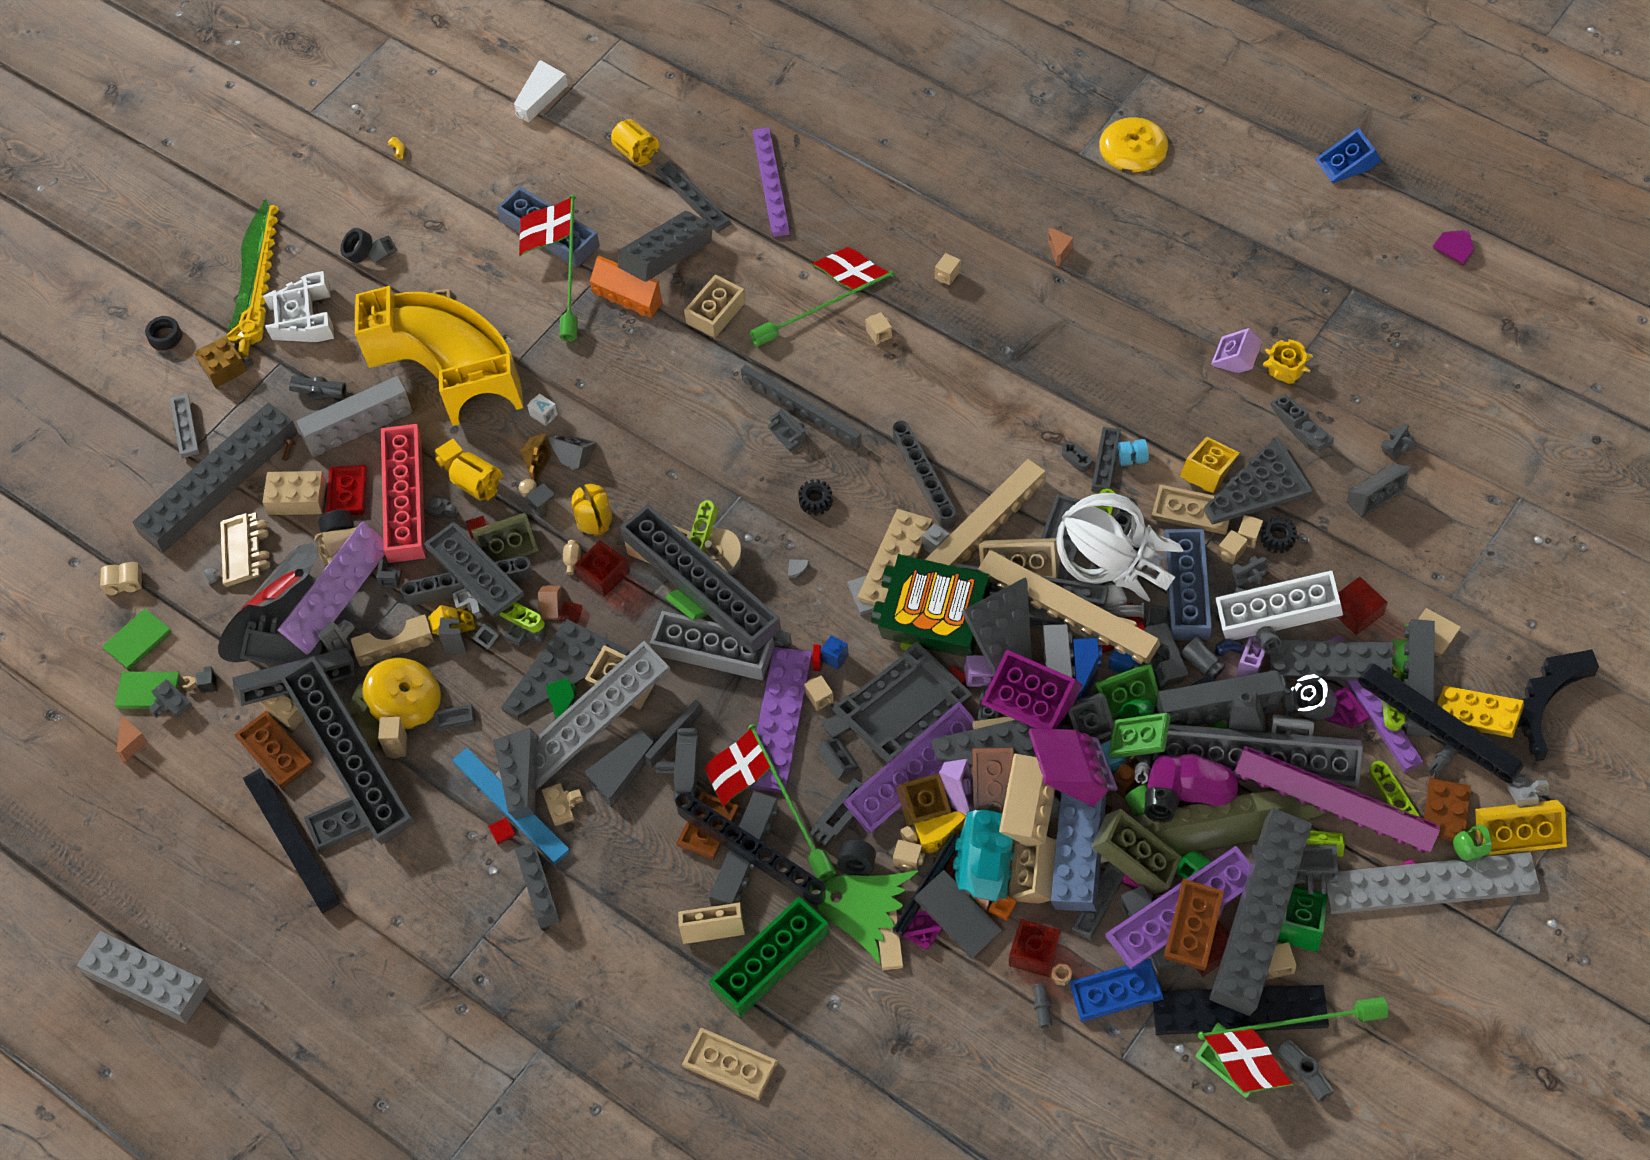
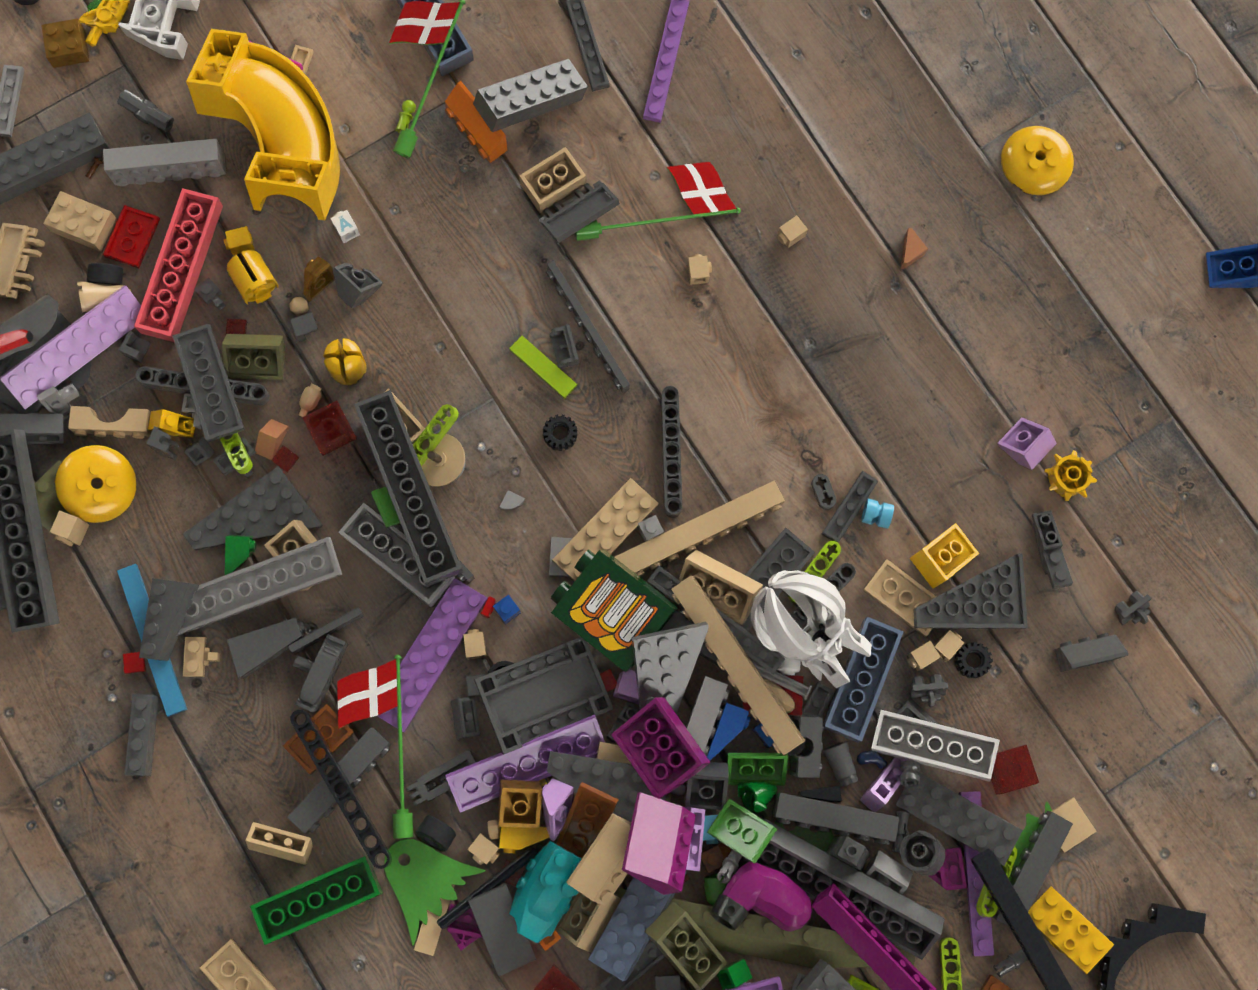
camera: 10 degrees right, 20 degrees up
(454, 717) = (137, 525): dark grey tile -> none
(558, 307) = (405, 117): none -> lime pin
(750, 319) = (579, 211): none -> dark grey hinge
(775, 453) = (543, 367): none -> lime tile

